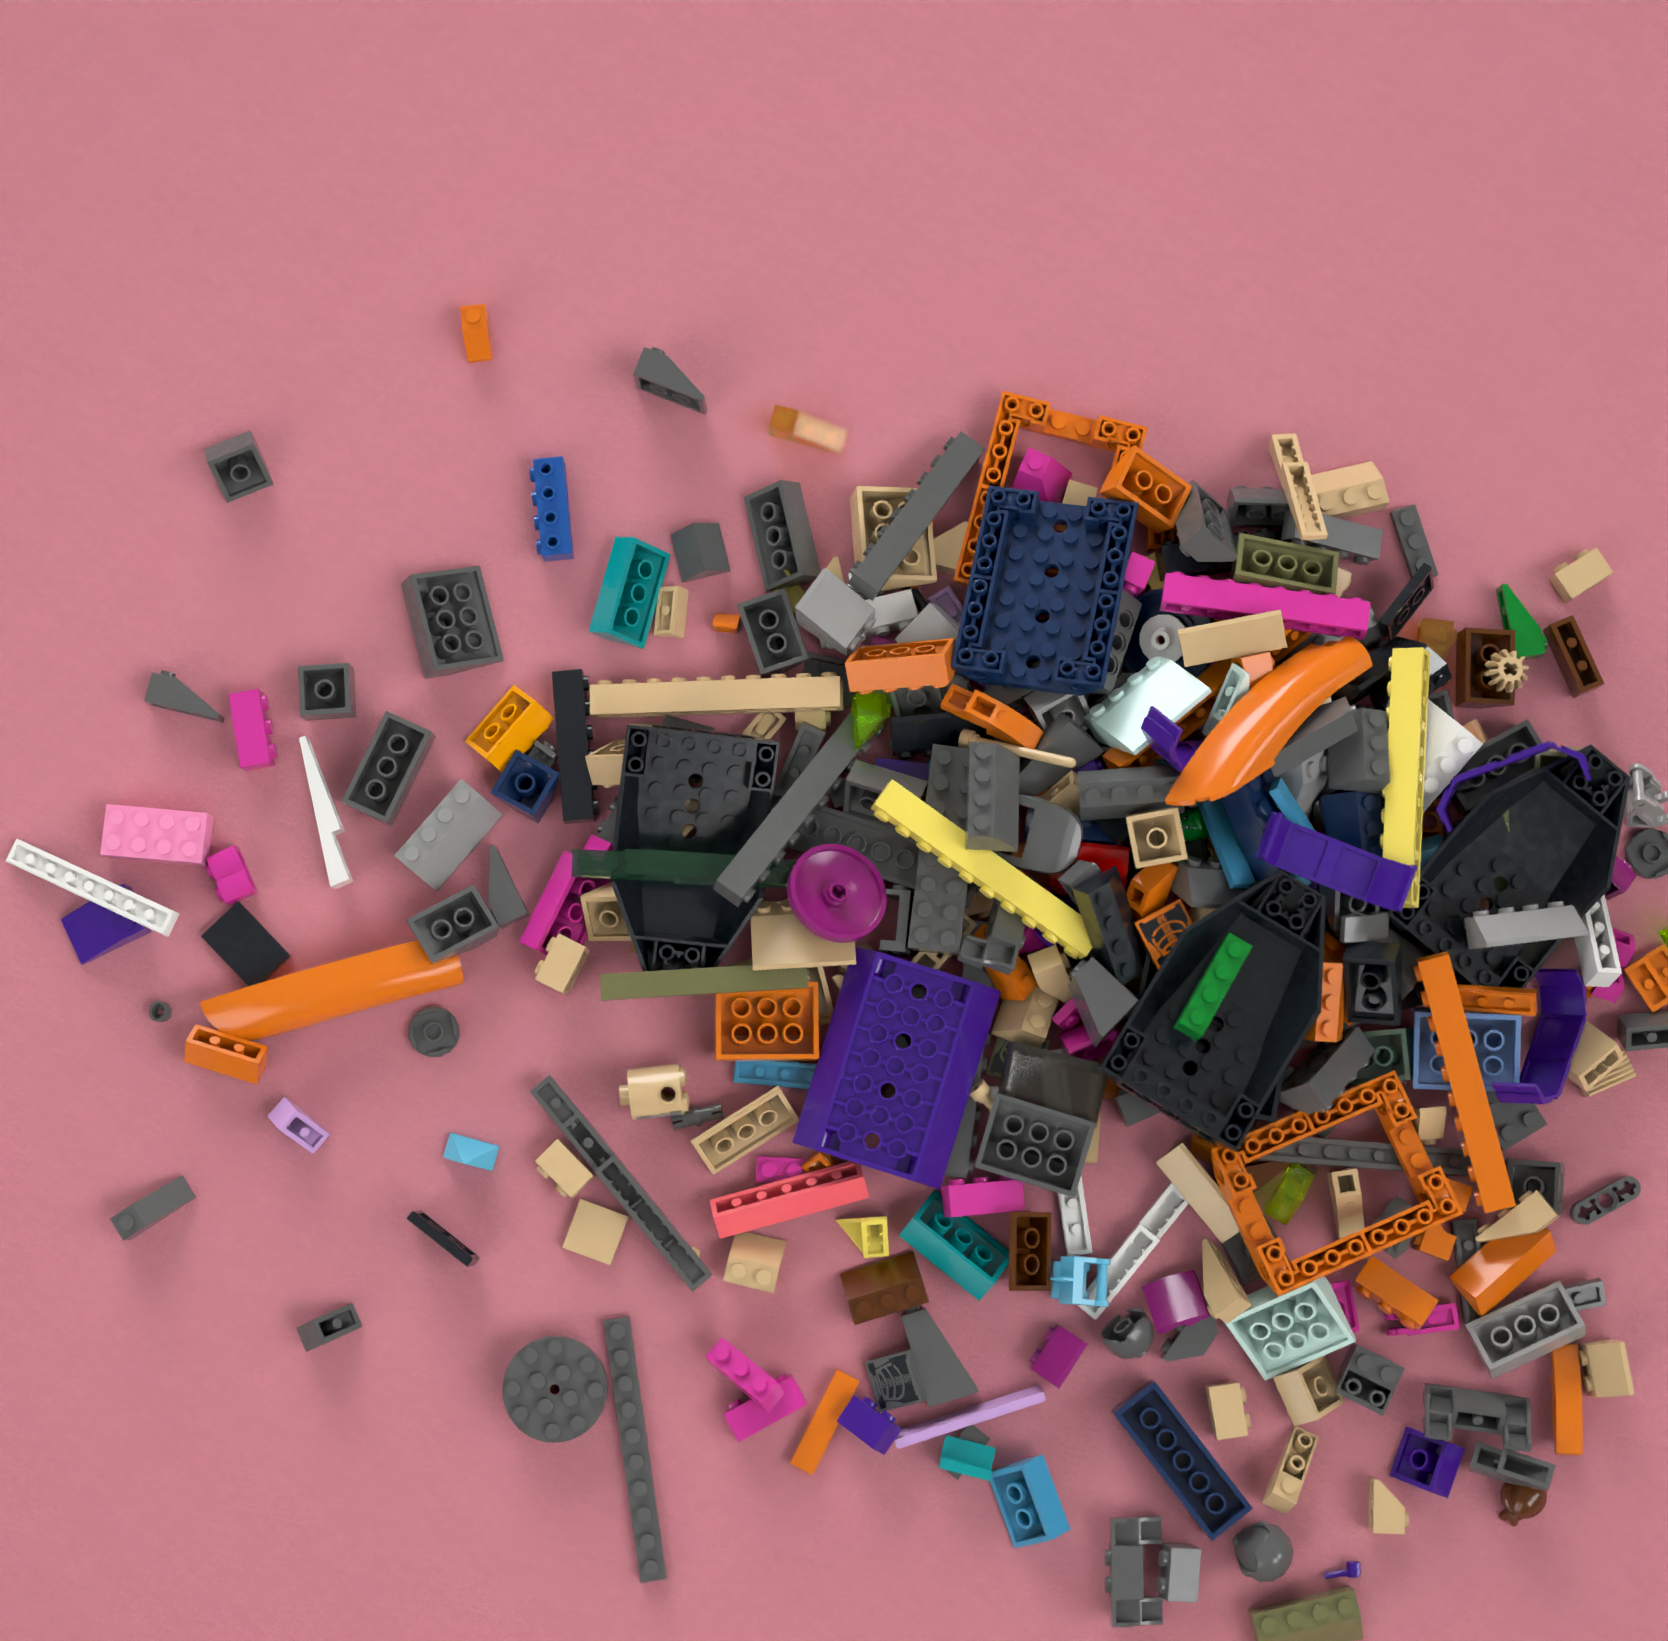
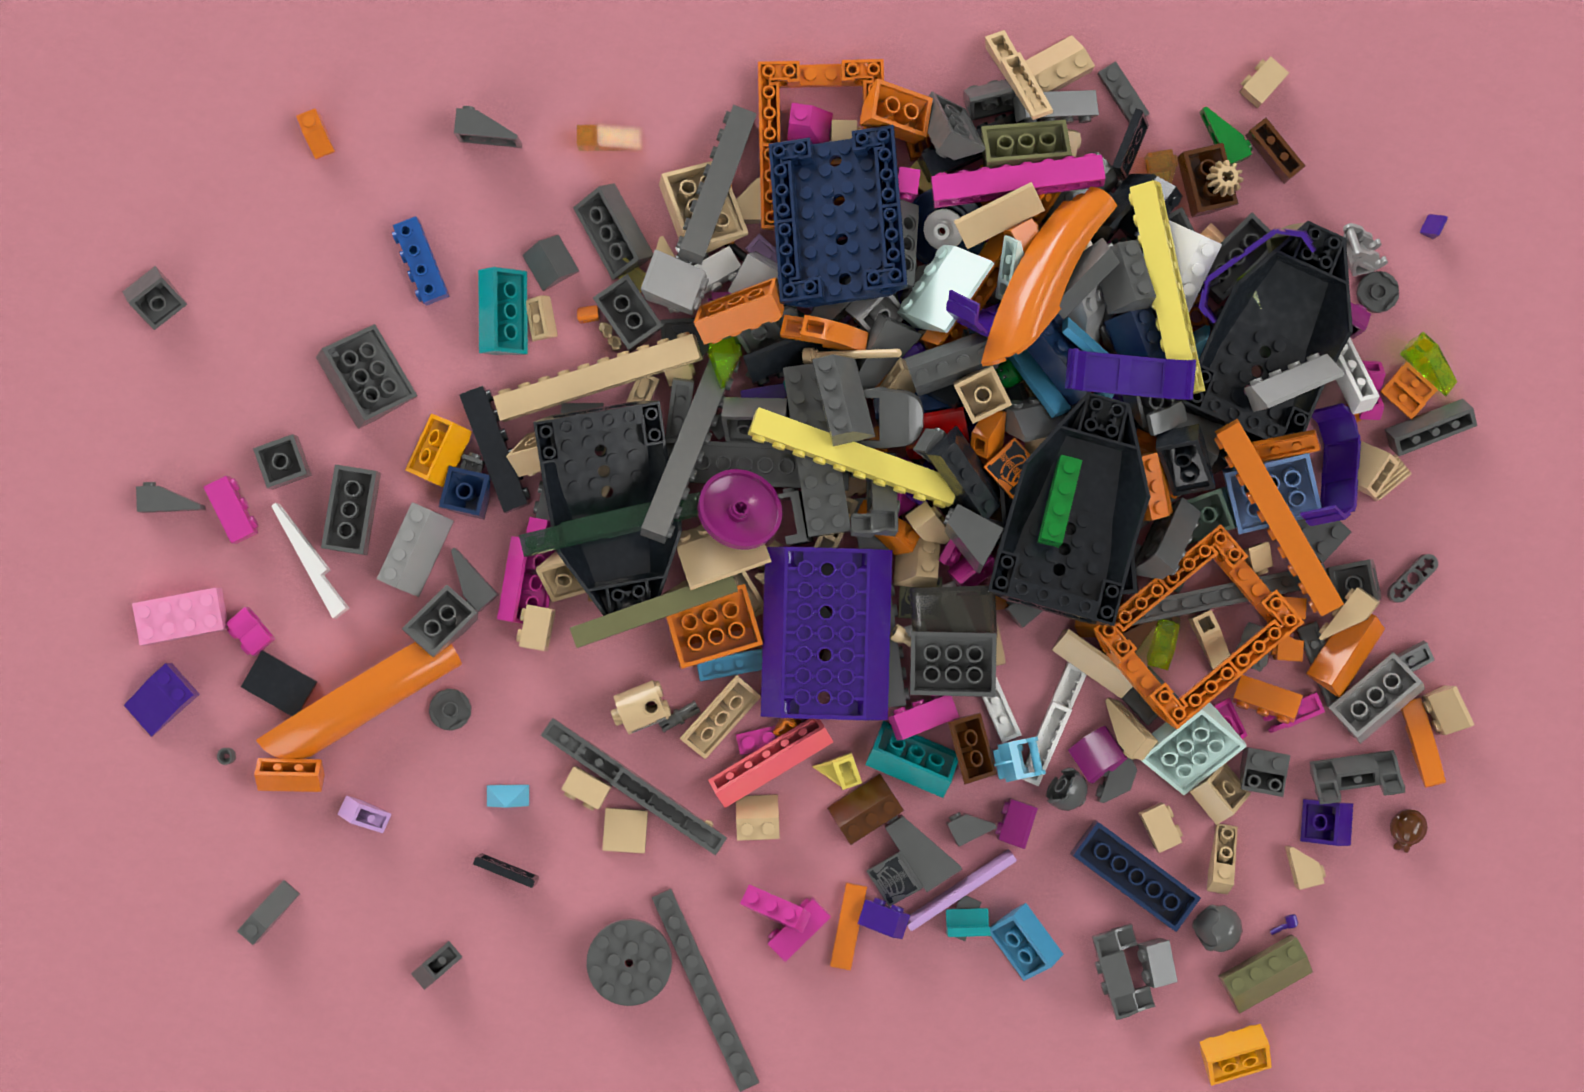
camera: 20 degrees left, 5 degrees up
(92, 887) = (141, 673): white tile -> none
(746, 661) = (613, 341): none -> tan piece
(998, 1345) = (968, 827): none -> dark grey slope
(1511, 1467) = (1393, 808): dark grey slope -> none

